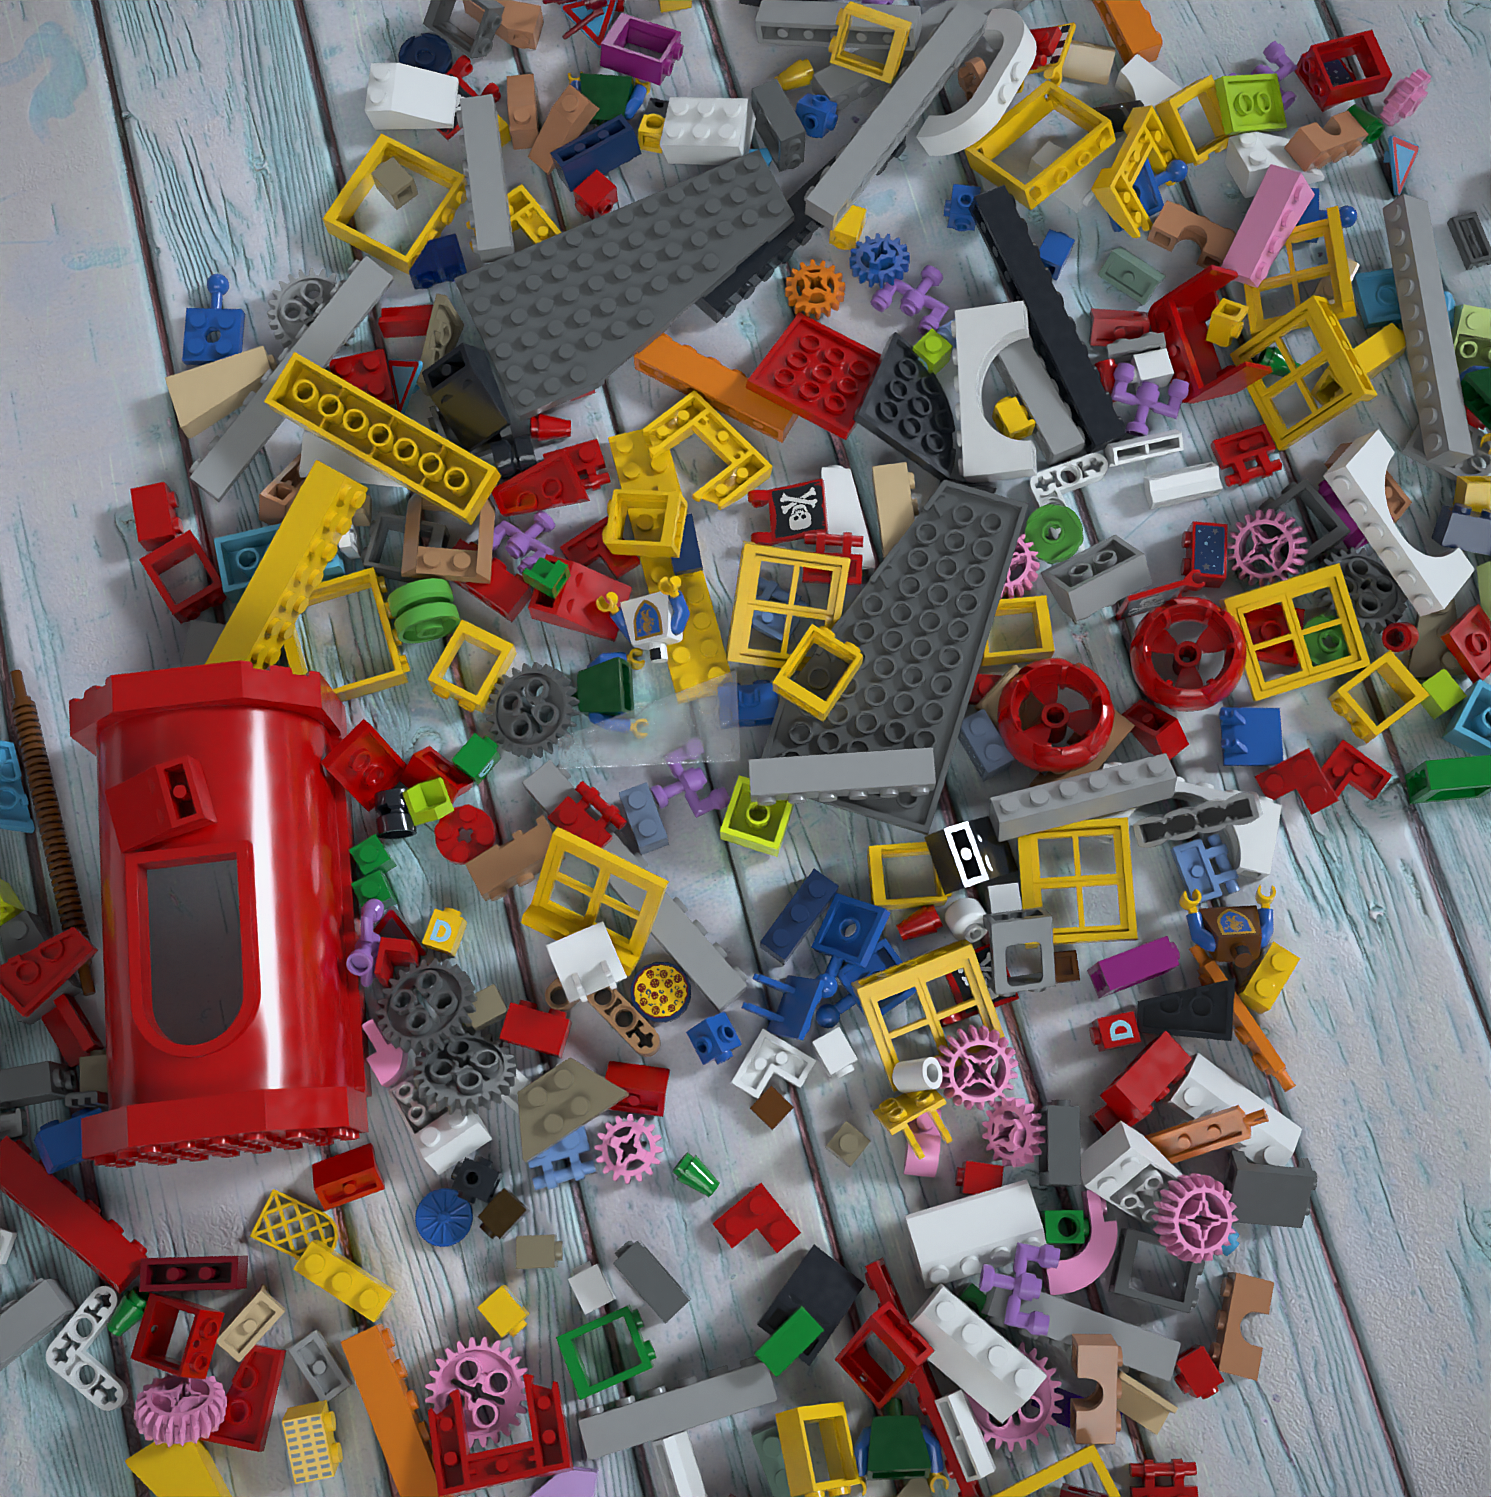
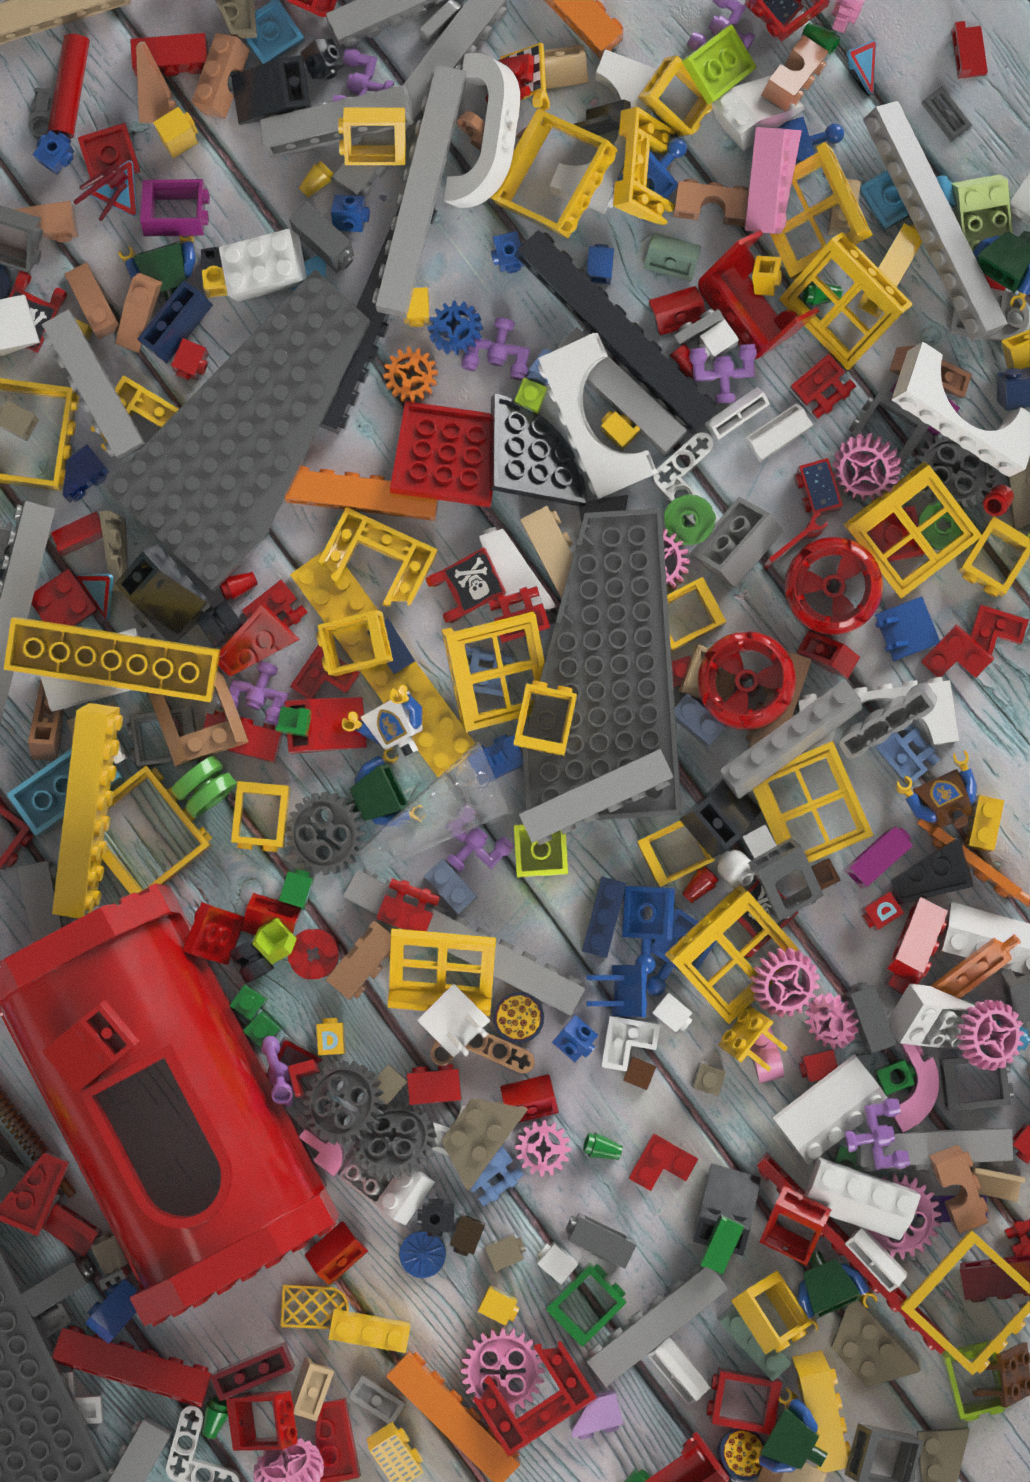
camera: 20 degrees left, 10 degrees up
(917, 1075) = (743, 1007): white brick -> none

